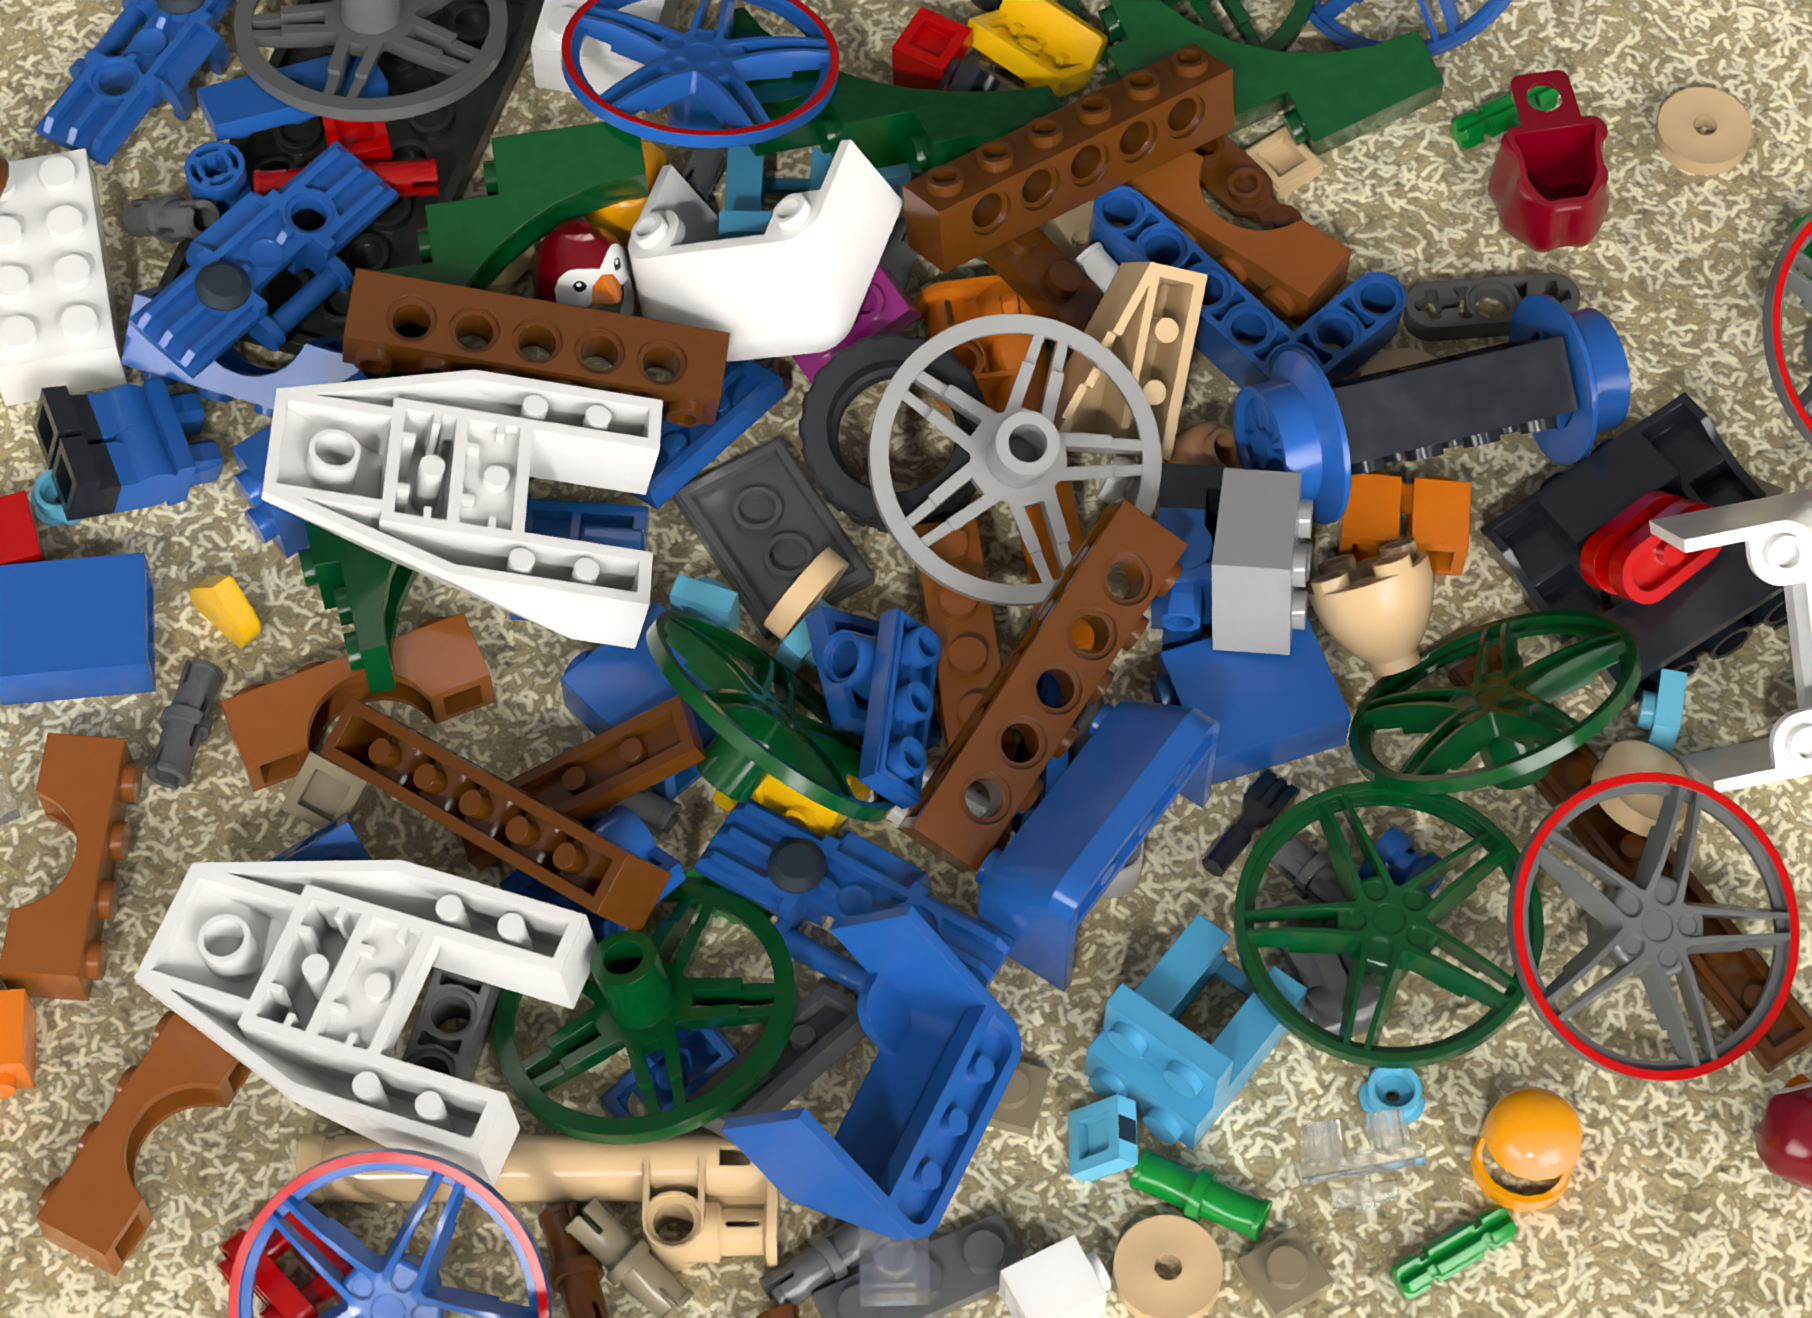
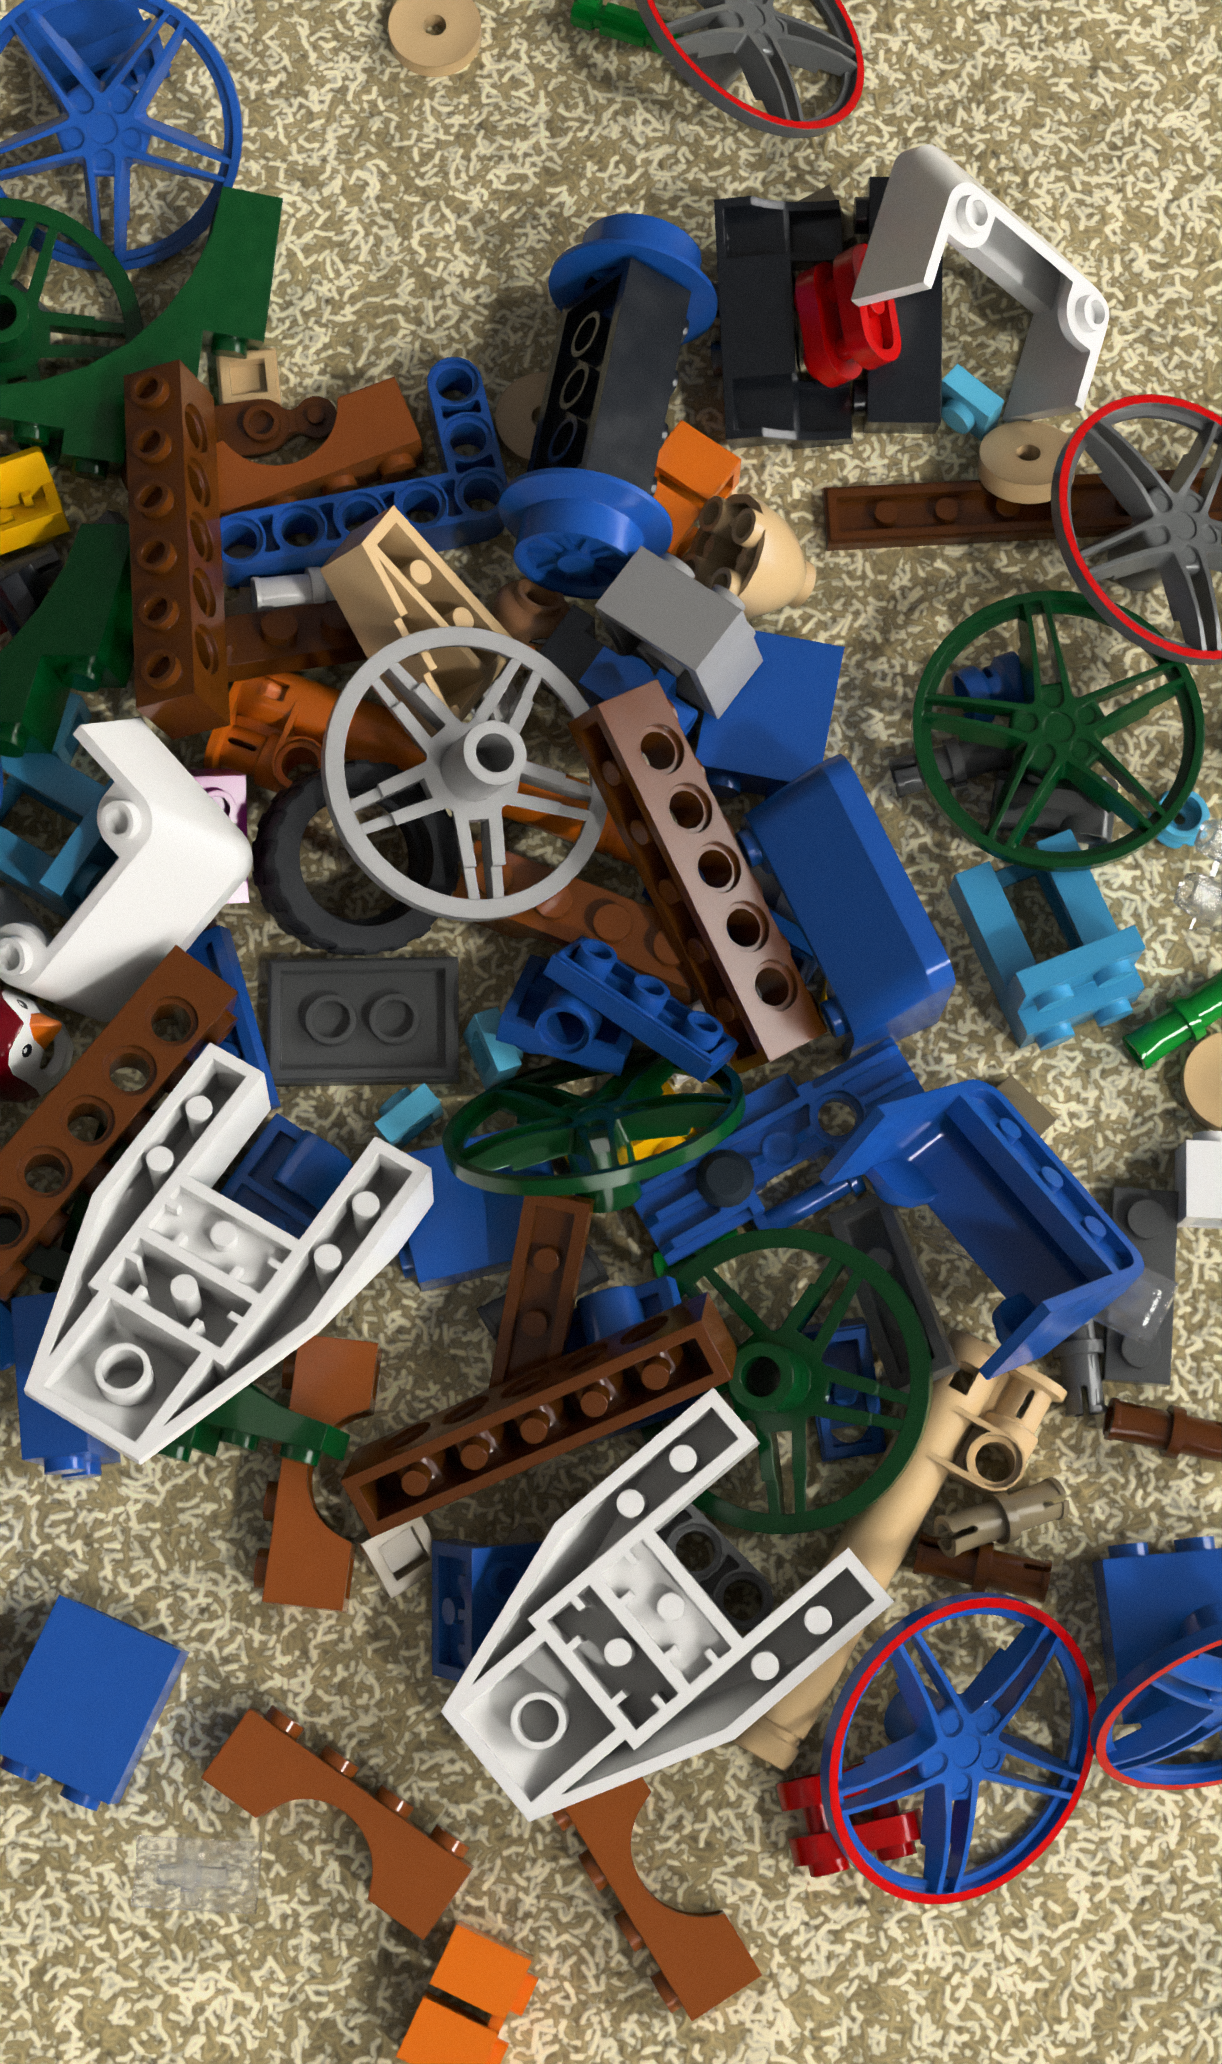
camera: 60 degrees left, 15 degrees up
(185, 724) = (248, 1642): dark grey pin -> none
(226, 608) = (149, 1544): yellow tile -> none
(805, 592) = (466, 1025): tan piece -> none
(1102, 1138) = (1098, 1067): medium azure plate -> none
(1260, 806) = (867, 765): black piece -> none
(1474, 325) = (501, 277): dark grey beam -> none
(1497, 116) = (315, 173): green axle -> none
(1502, 711) = (920, 524): dark green wheel -> none
(1550, 170) = (422, 171): dark red piece -> none

